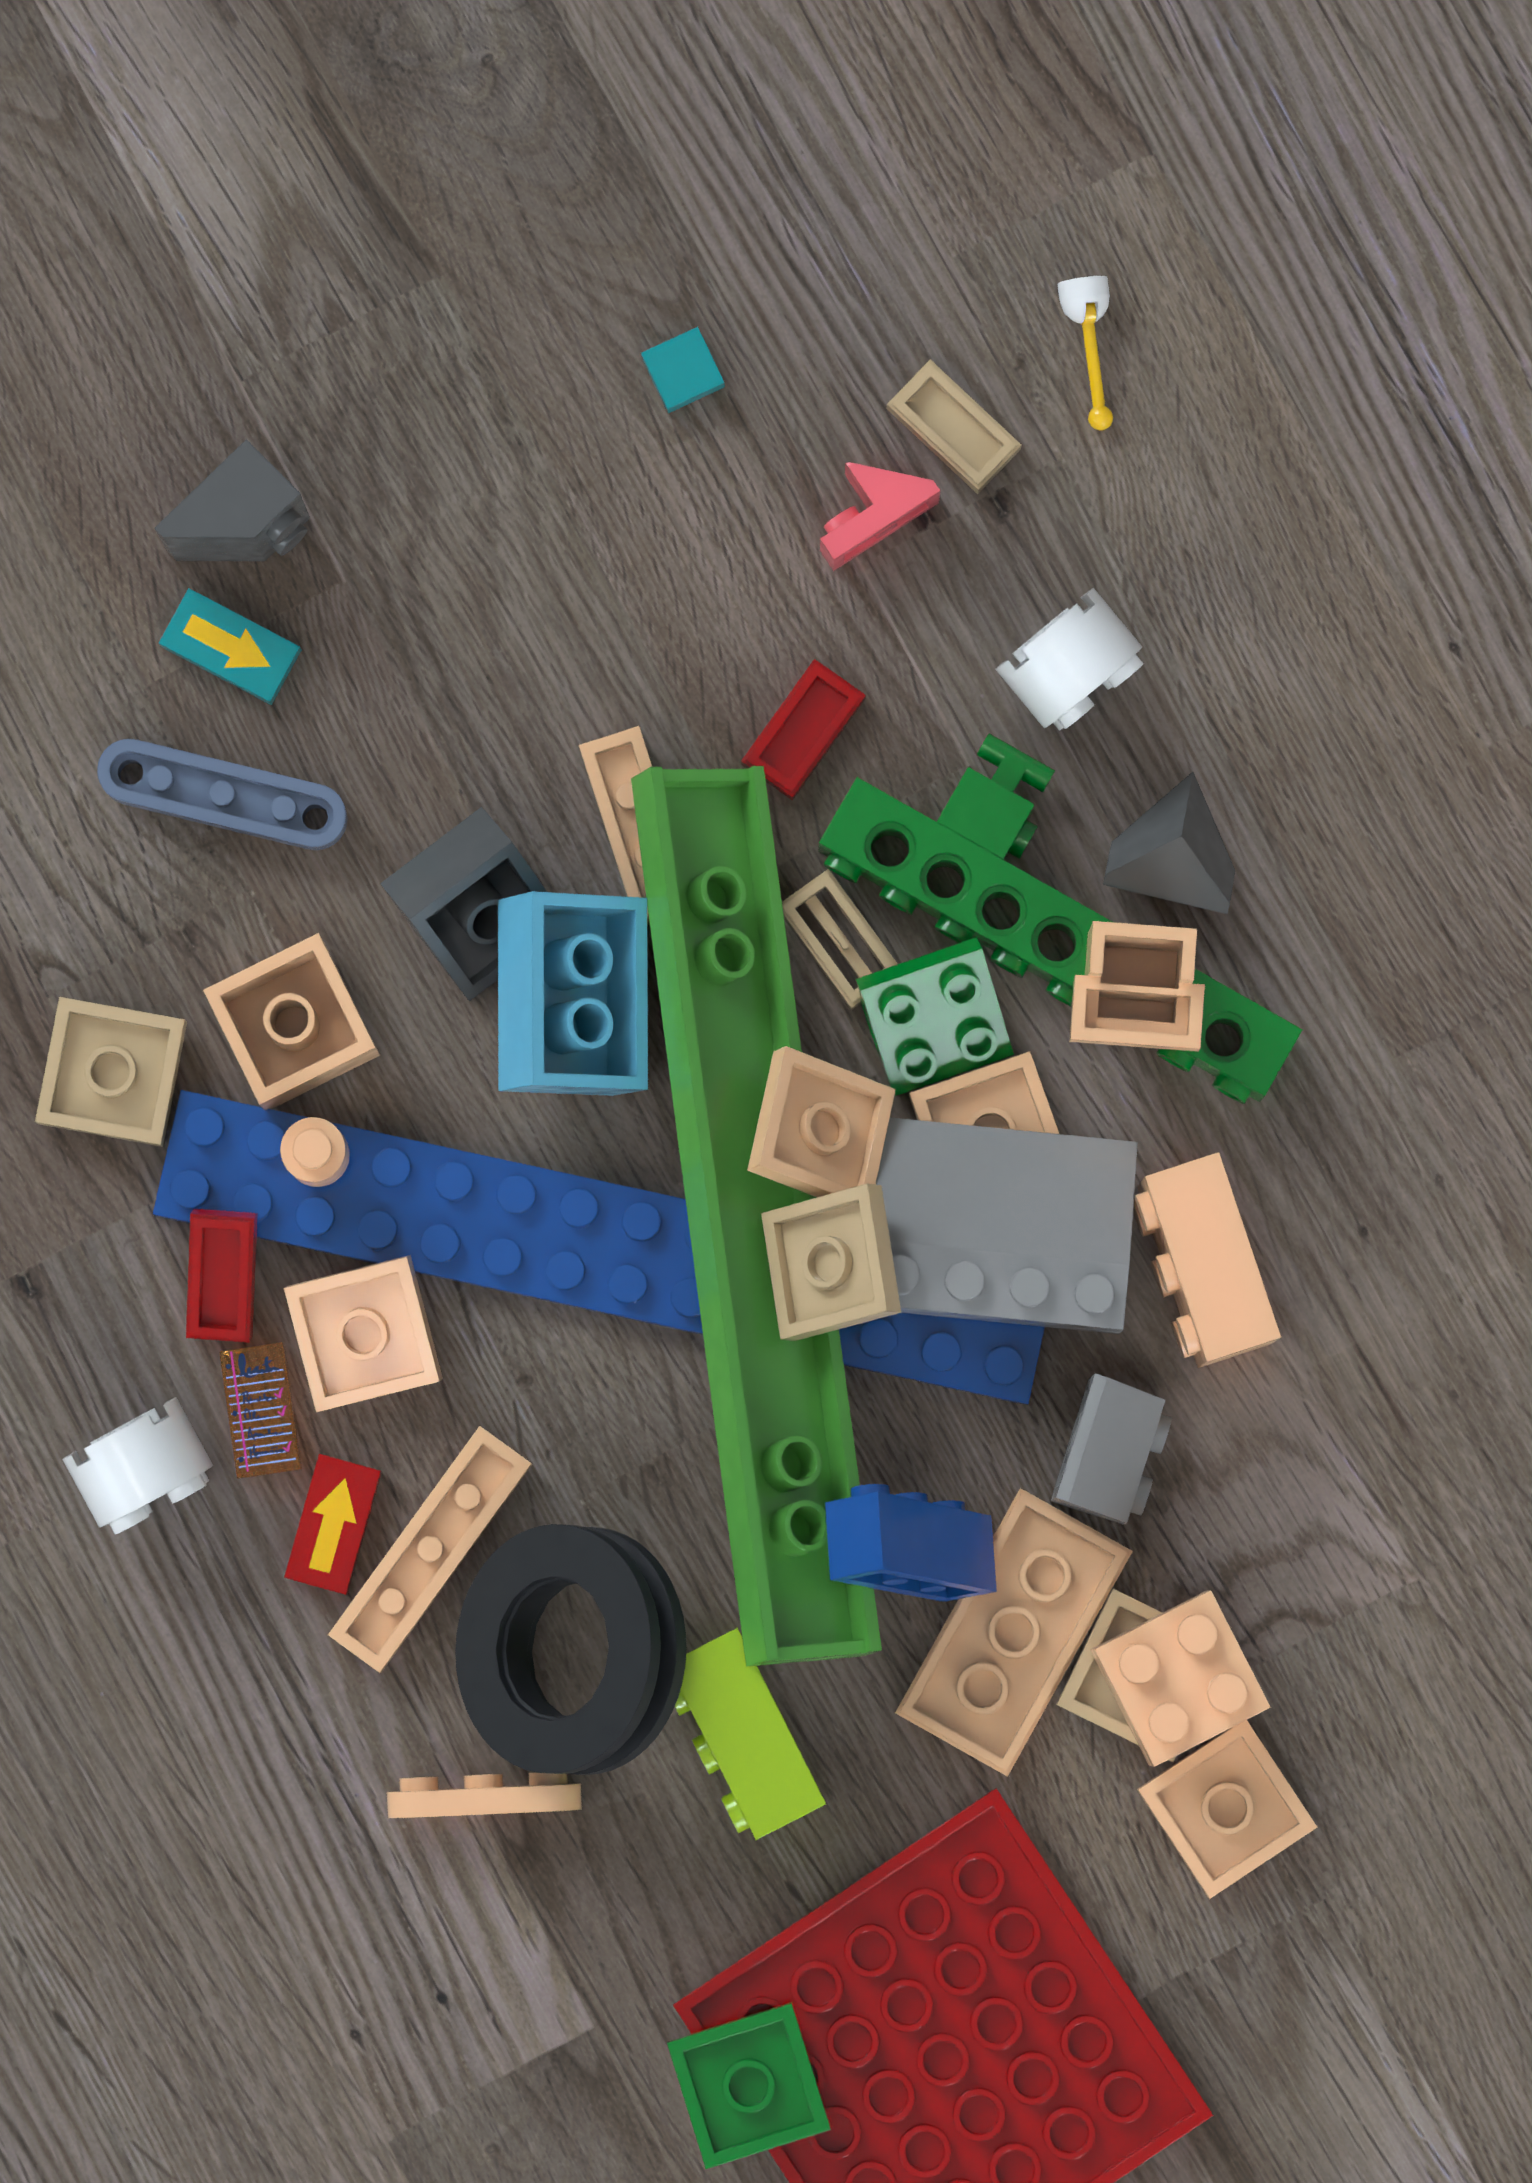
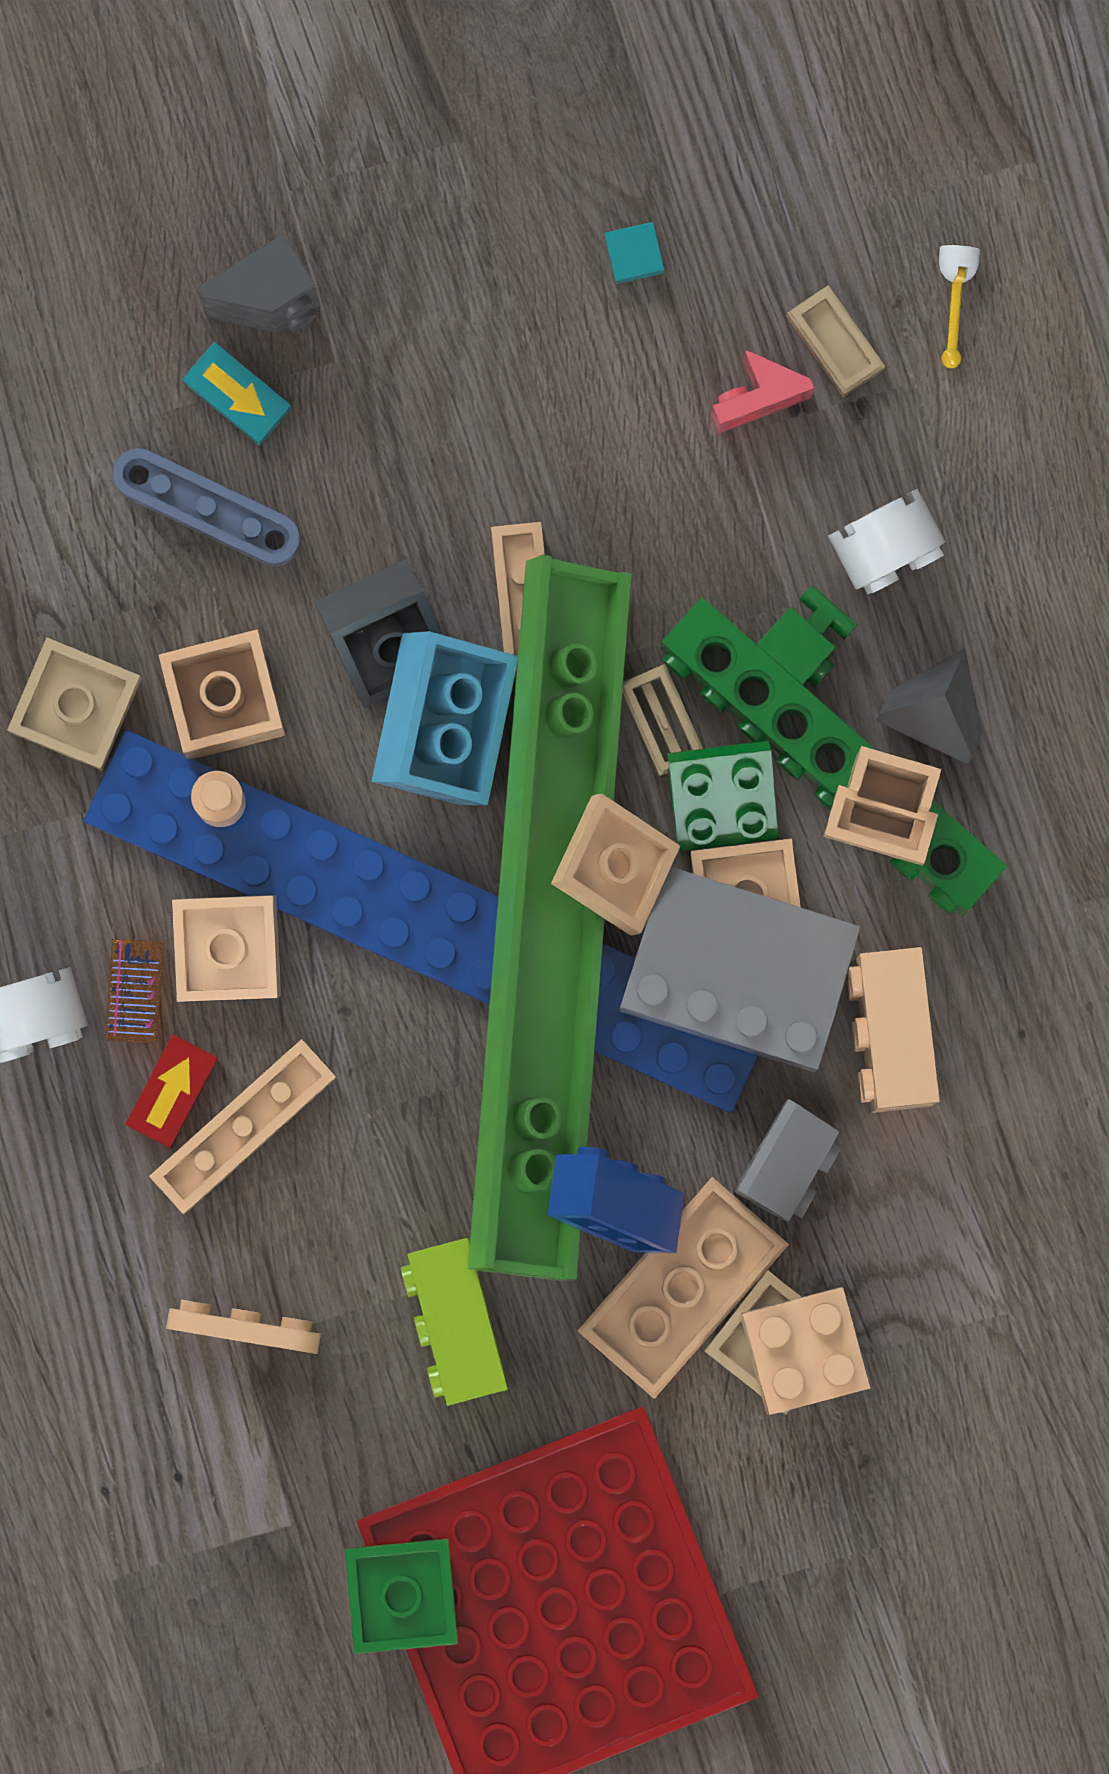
camera: 10 degrees right, 0 degrees up
(221, 1275) = (126, 880): red tile -> none
(642, 1660) = (391, 1235): black tyre -> none
(804, 728) = (669, 551): red tile -> none
(831, 1262) = (601, 969): tan plate -> none
(1227, 1808) = (820, 1460): light nougat plate -> none

